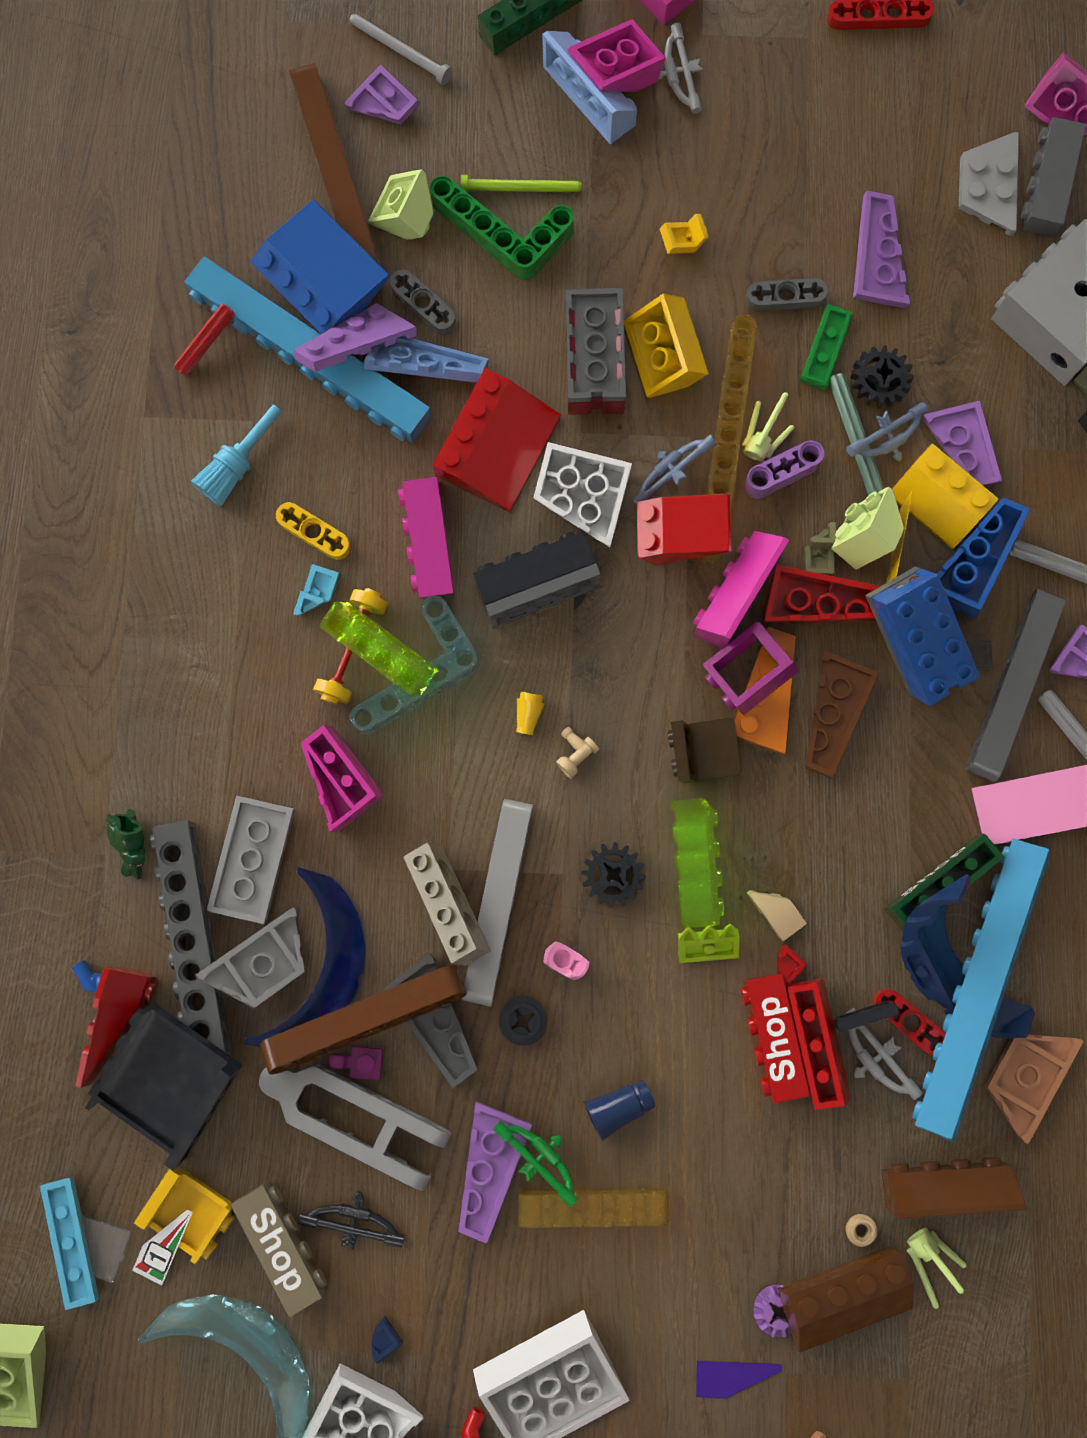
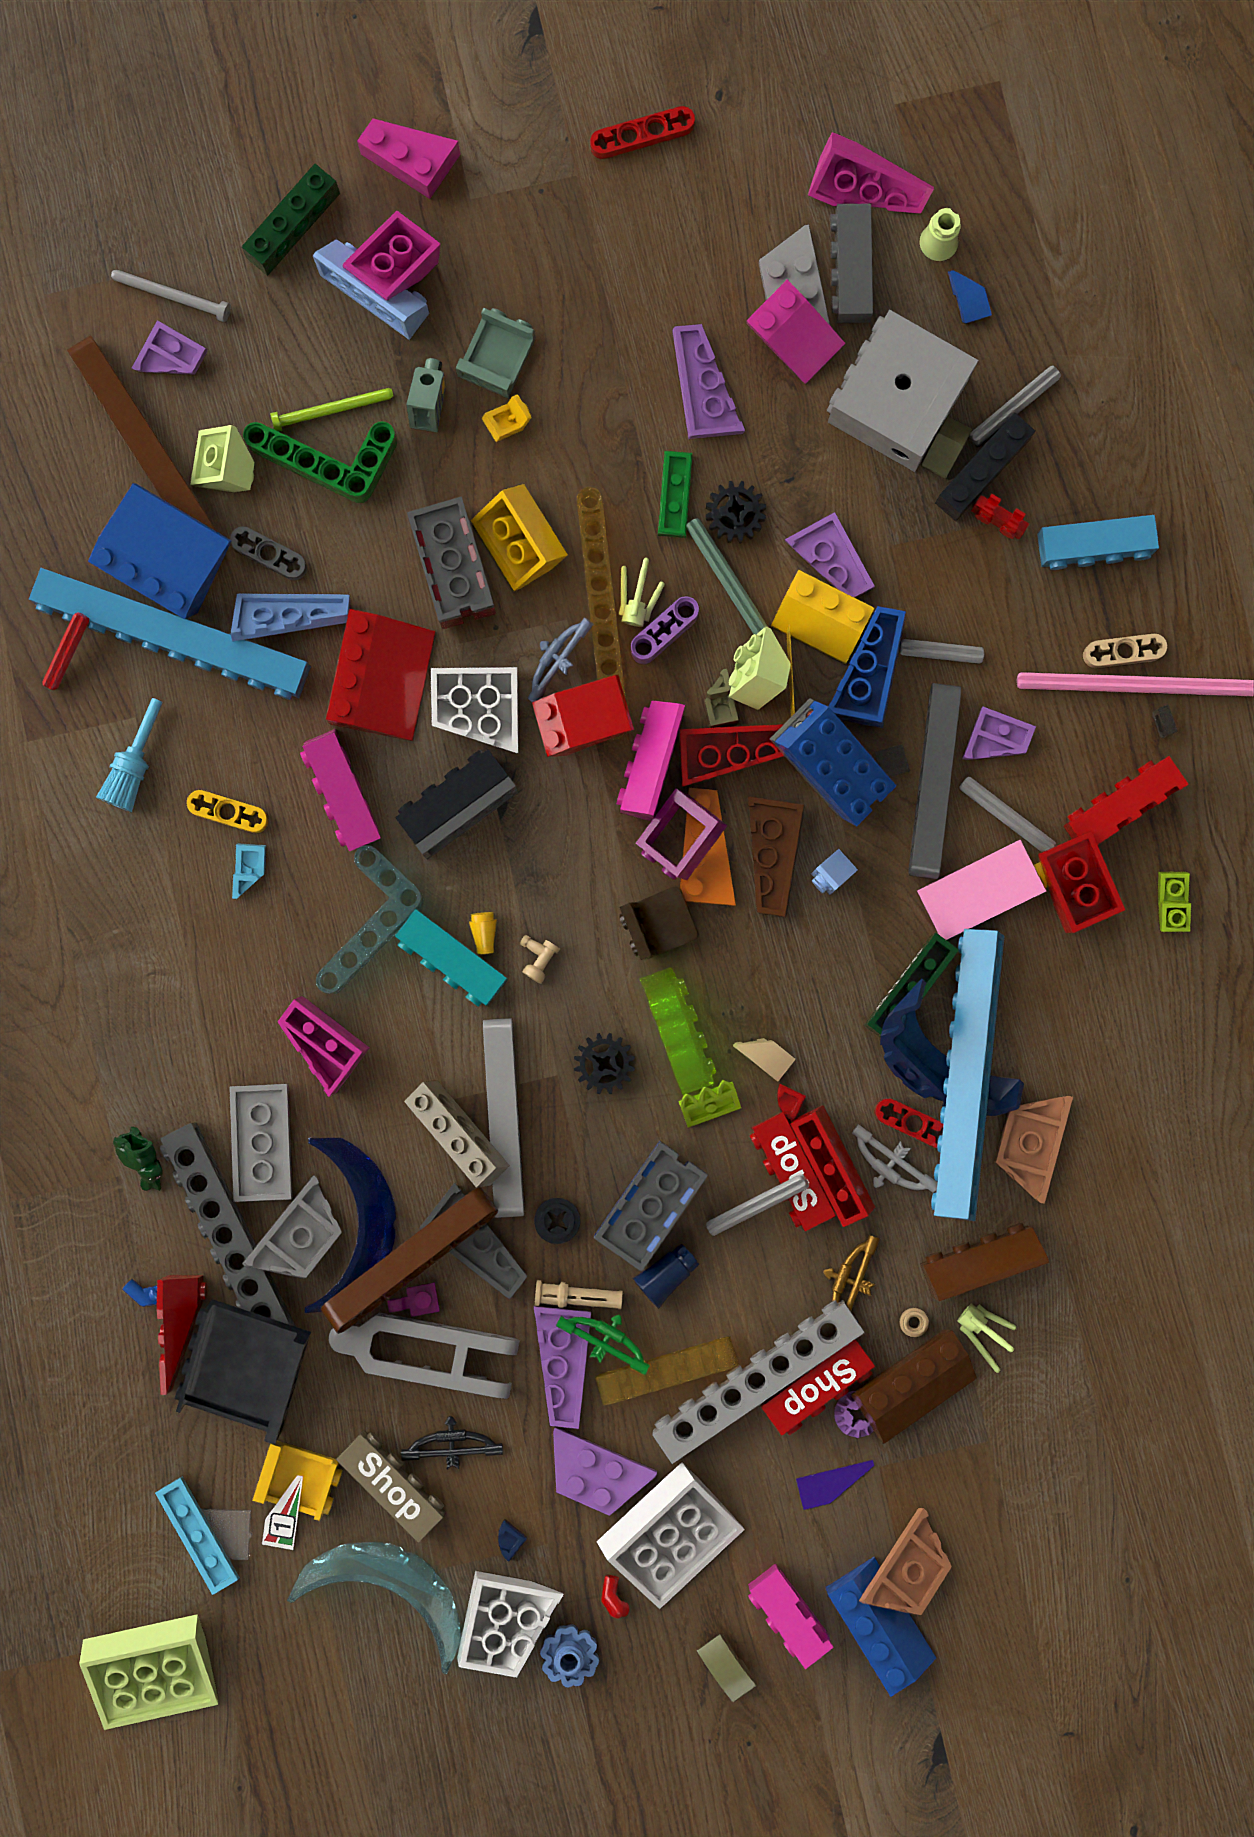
camera: 20 degrees left, 5 degrees up
(333, 690) = (301, 868): yellow axle -> none
(354, 336) = (213, 611): medium lavender wing -> none
(378, 648) = (325, 912): clear neon green brick -> none
(489, 728) = (451, 958): none -> teal brick
(491, 1295) = (596, 1473): none -> medium lavender wing
(509, 1099) = (563, 1295): none -> tan pin
(565, 961) = (581, 1155): bright pink hair -> none
(584, 1291) = (678, 1445): none -> light grey brick
(614, 185) = (426, 396): none -> sand green torso
(622, 1032) = (650, 1206): none -> dark grey piece
(671, 71) = (479, 272): light grey piece -> none
(690, 174) = (497, 352): none -> sand green panel
(732, 1061) = (757, 1204): none -> light grey axle
(744, 1269) = (816, 1387): none -> red brick
(794, 285) = (645, 452): dark grey beam -> none
(797, 1163) = (859, 1284): none -> pearl gold piece
(859, 447) = (752, 562): sand blue piece -> none
(865, 1015) = (868, 1129): black tile -> none
(892, 747) = (833, 872): none -> light blue slope
(983, 222) = (795, 331): none -> dark pink slope

